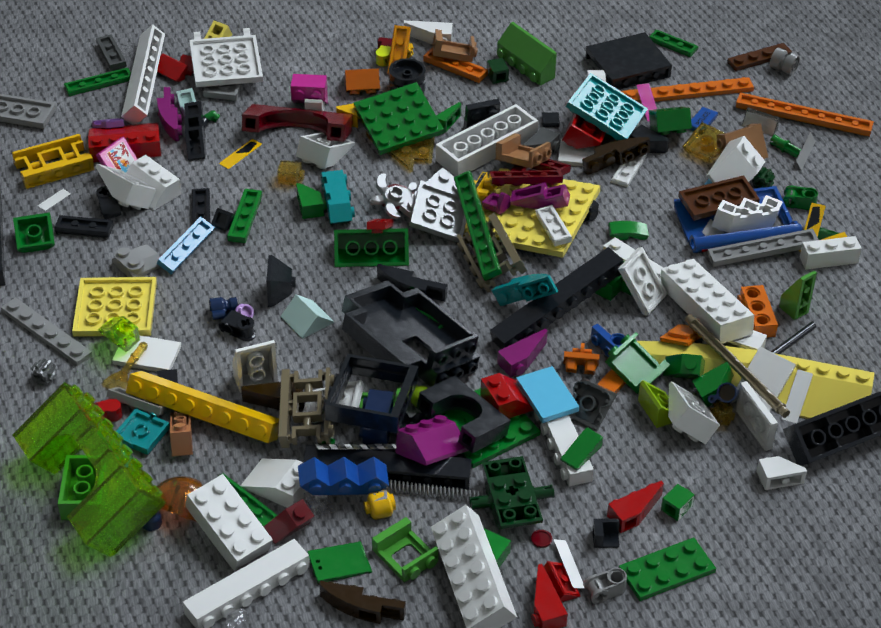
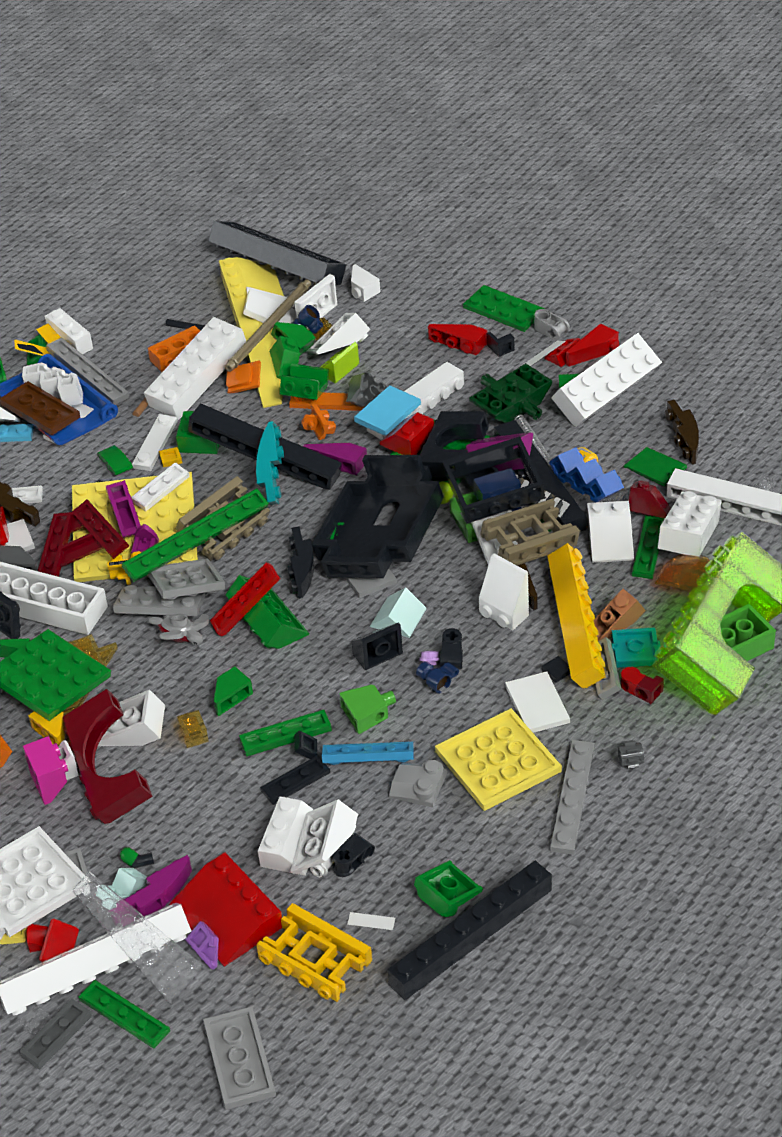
camera: 115 degrees left, 0 degrees up
(84, 226) = (399, 856): black plate -> none
(103, 98) = (151, 950): none -> clear wing
(117, 155) = (278, 878): tile -> none
(121, 332) = (541, 713): clear neon green slope -> none
(123, 374) = (579, 703): clear yellow piece -> none
(195, 131) = (175, 846): black slope -> none
(228, 259) = (366, 706): none -> bright green torso
(240, 153) = (179, 799): yellow sticker -> none
(337, 196) = (204, 668): teal brick -> none
(395, 539) = (613, 444): bright green window -> none
(512, 152) = (57, 549): medium nougat panel -> none
(582, 449) = (432, 368): green slope -> none
(604, 340) = (286, 409): blue plate -> none
(642, 281) = (192, 403): white tile -> none
(677, 502) = (436, 315): green brick -> none
(798, 297) = (151, 319): bright green slope -> none

